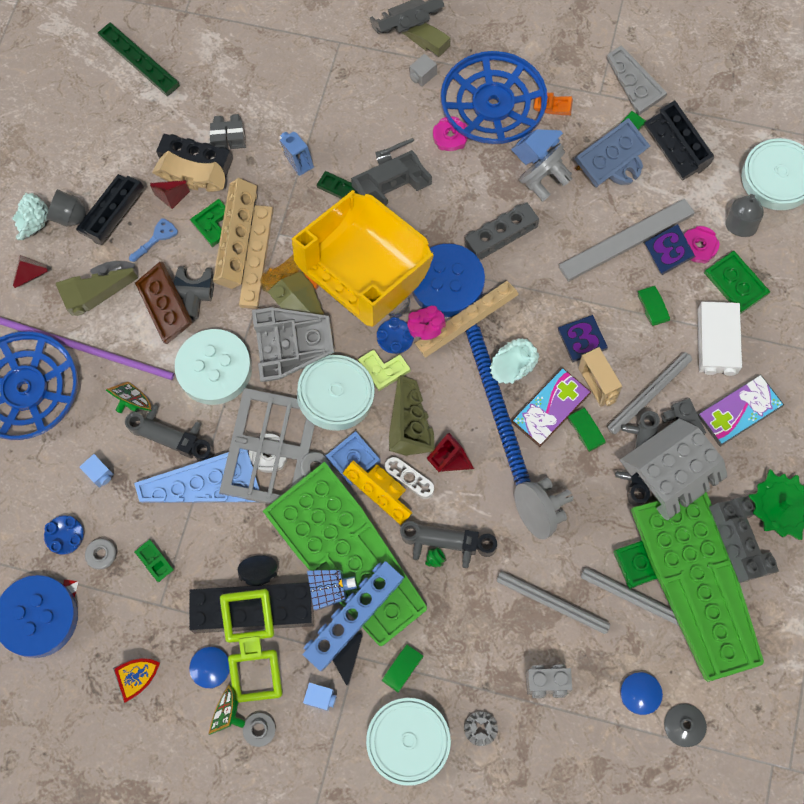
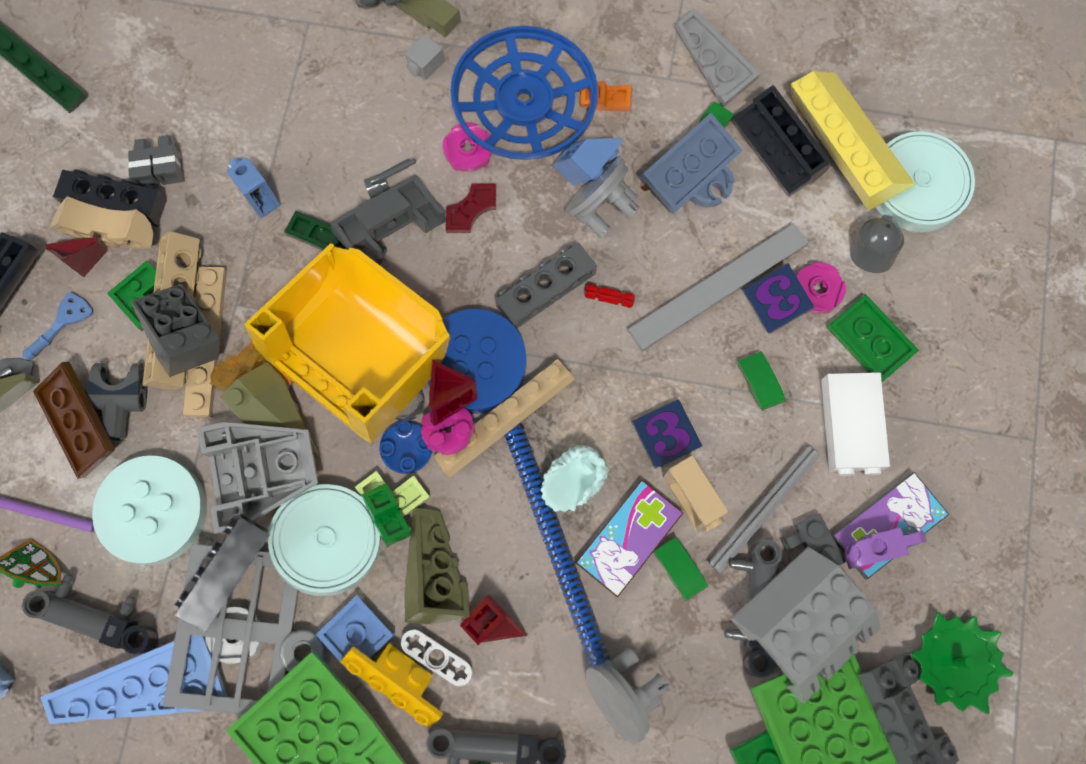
camera: 10 degrees left, 5 degrees up
(241, 244) = (177, 330): none -> dark grey slope
(266, 404) = (222, 573): none -> brick
(379, 378) = (386, 515): none -> green slope
(429, 296) = (449, 392): none -> dark red slope
(457, 171) = (464, 214): none -> dark red tile
(547, 241) = (609, 295): none -> red axle
(729, 140) = (850, 138): none -> light yellow slope
(732, 421) = (881, 547): none -> medium lavender piece

